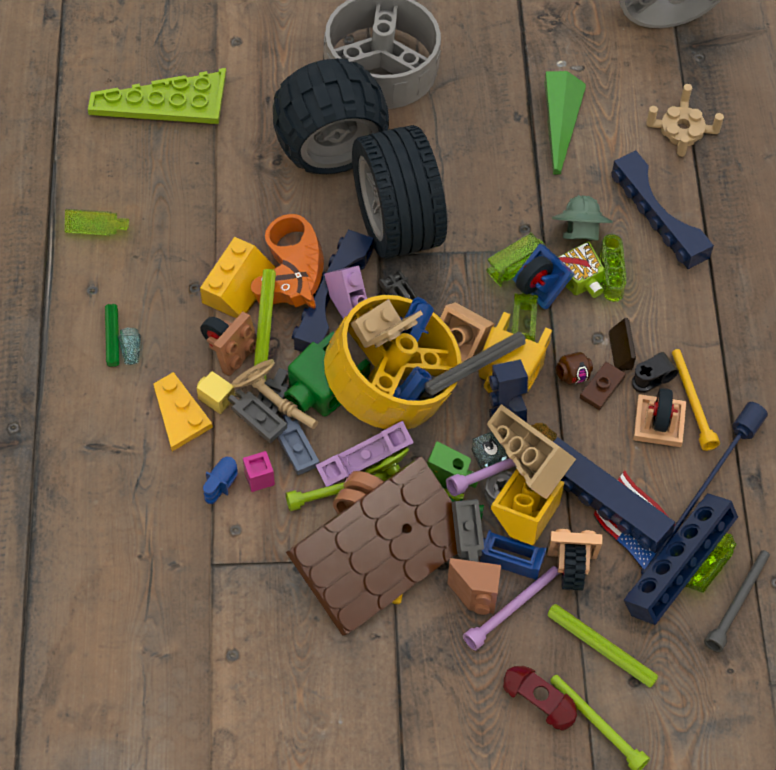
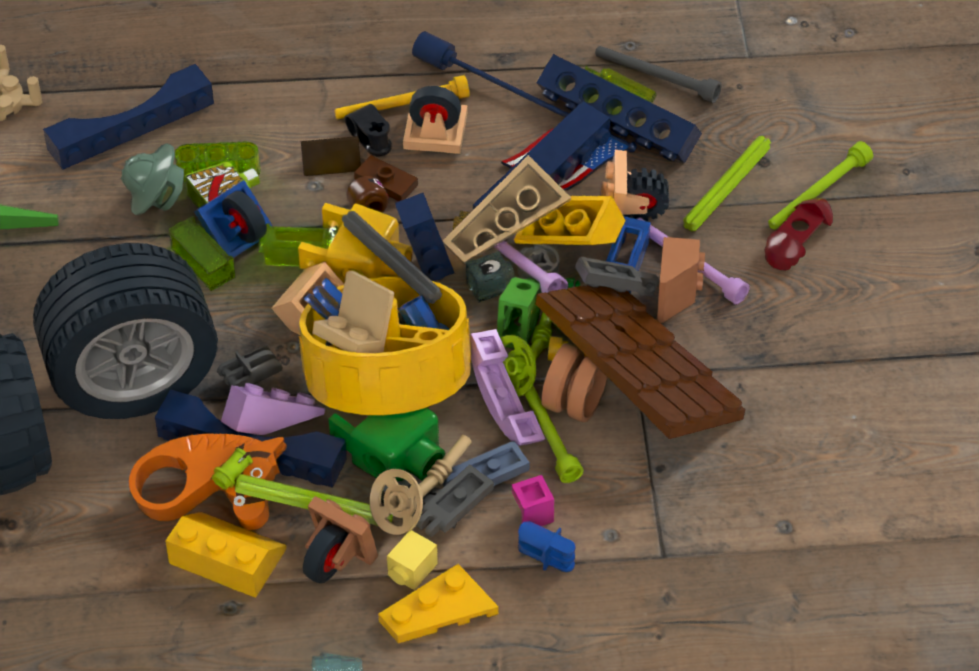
camera: 90 degrees left, 10 degrees down
(282, 267) = (231, 469): none -> lime pin

